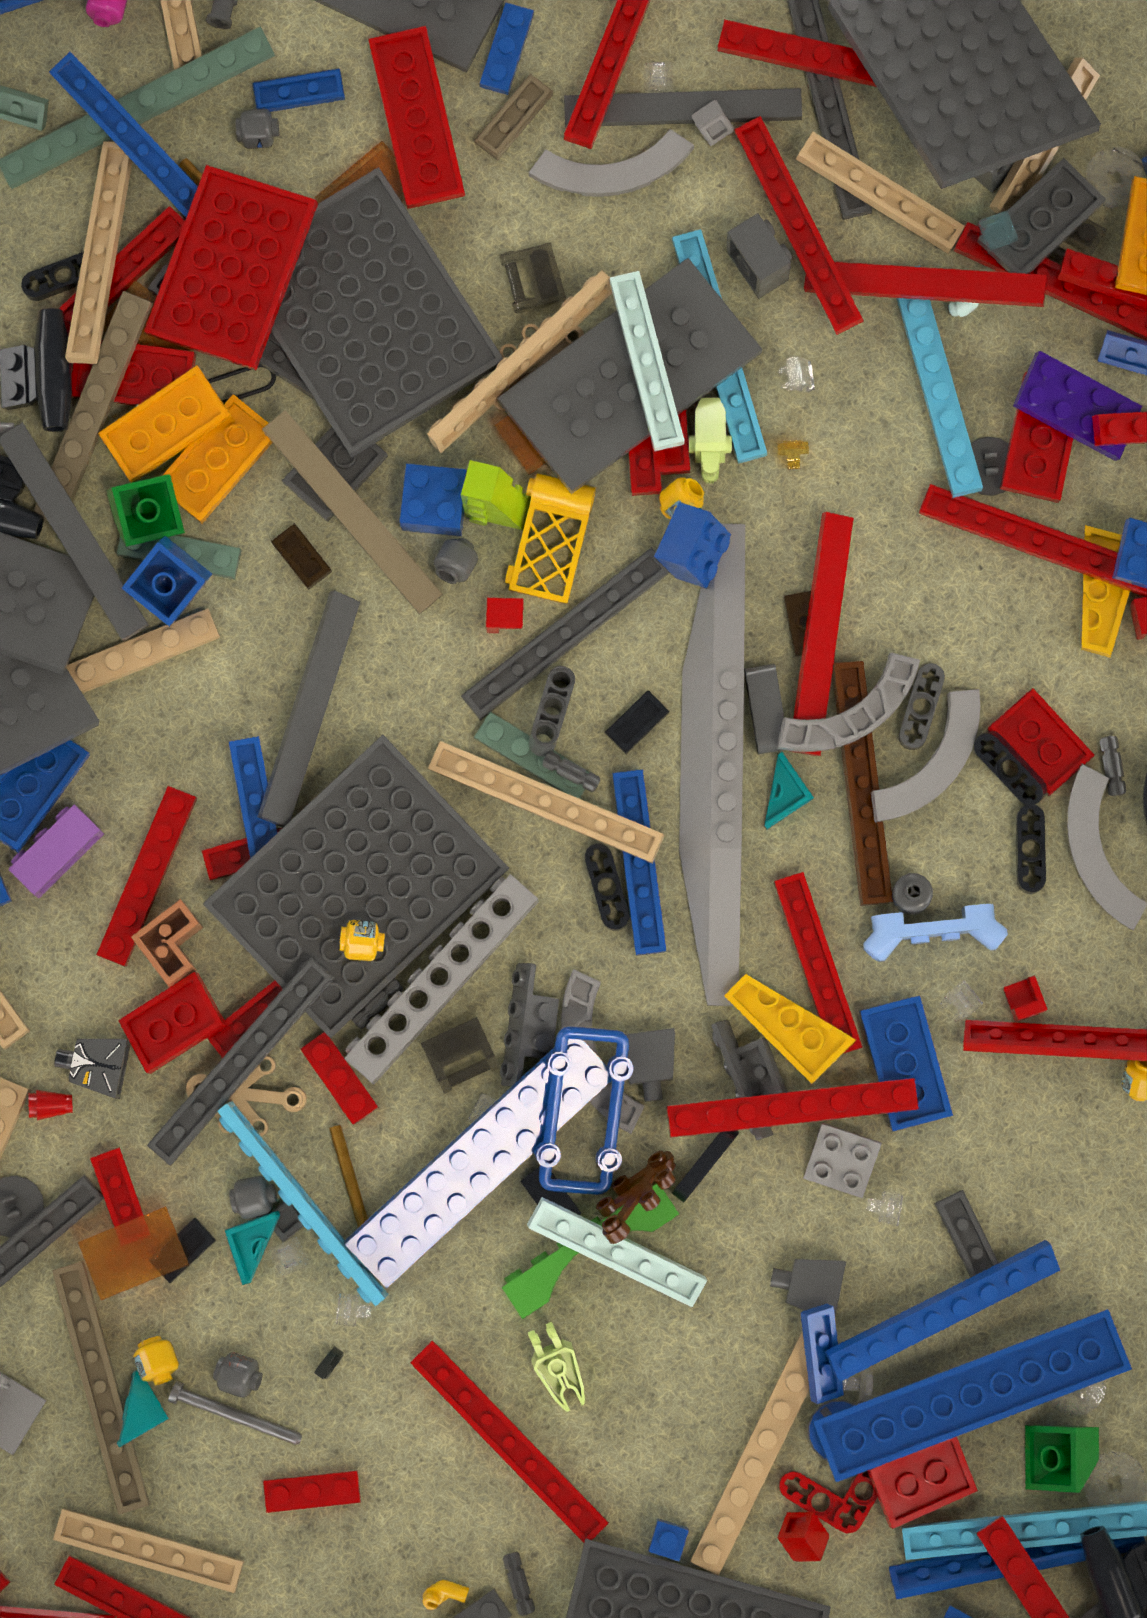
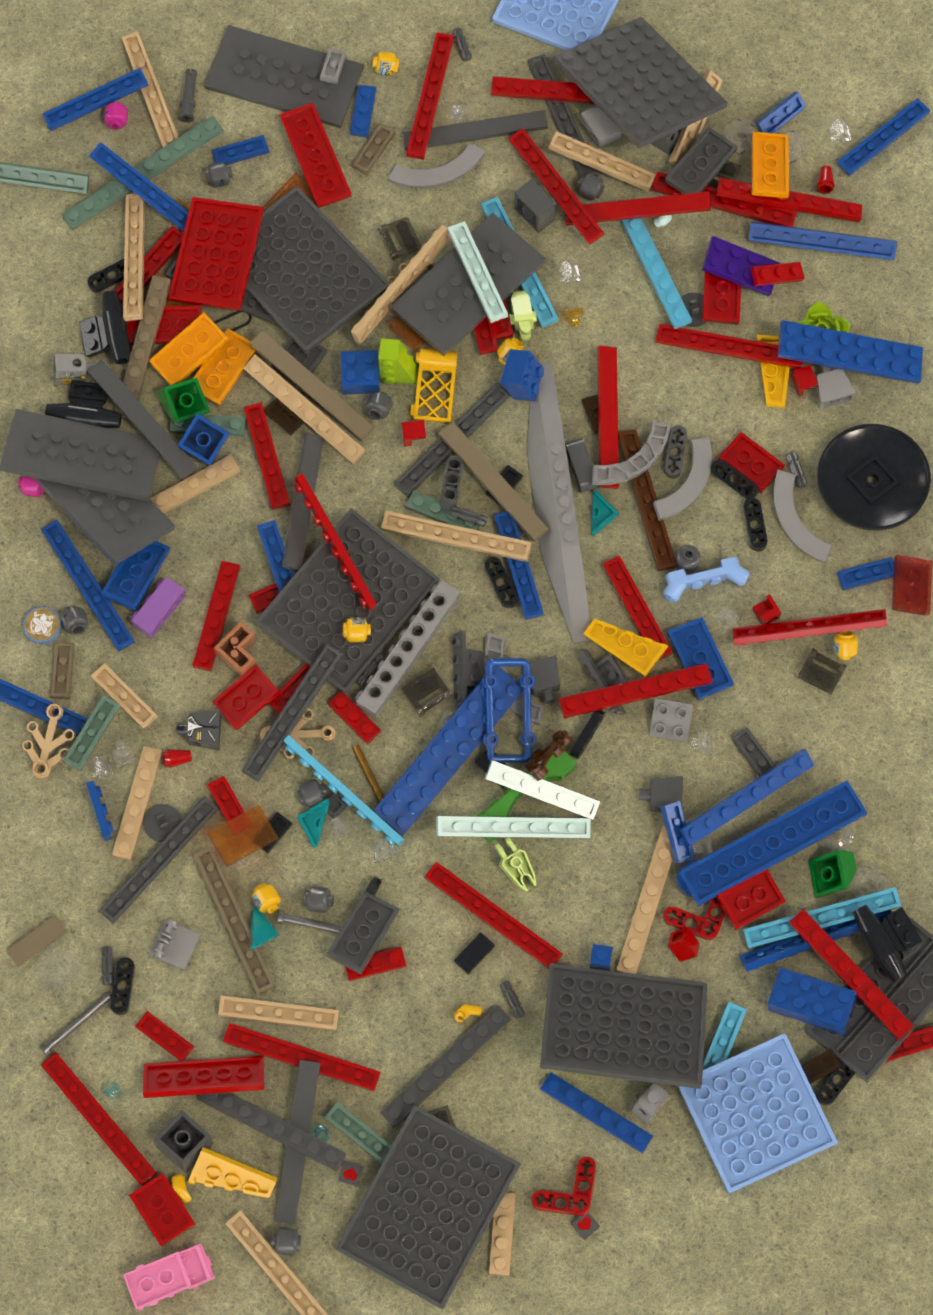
camera: 15 degrees left, 10 degrees down
(265, 620) = (267, 456): none -> red plate
(298, 1442) = (363, 932): none -> dark grey plate
(336, 550) = (305, 409): none -> tan plate
(340, 780) = (338, 549): none -> red plate
(470, 1498) = (474, 953): none -> black tile
(560, 1308) = (513, 827): none -> light aqua plate
(619, 718) = (493, 482): none -> dark tan tile
(712, 122) = (494, 136): light grey slope -> none
(855, 232) = (590, 186): none -> dark grey head
(884, 132) = (600, 127): none -> light grey hinge
(997, 230) = (676, 171): clear light blue tile -> none
(1092, 1121) = (820, 676): none -> clear smoke plate

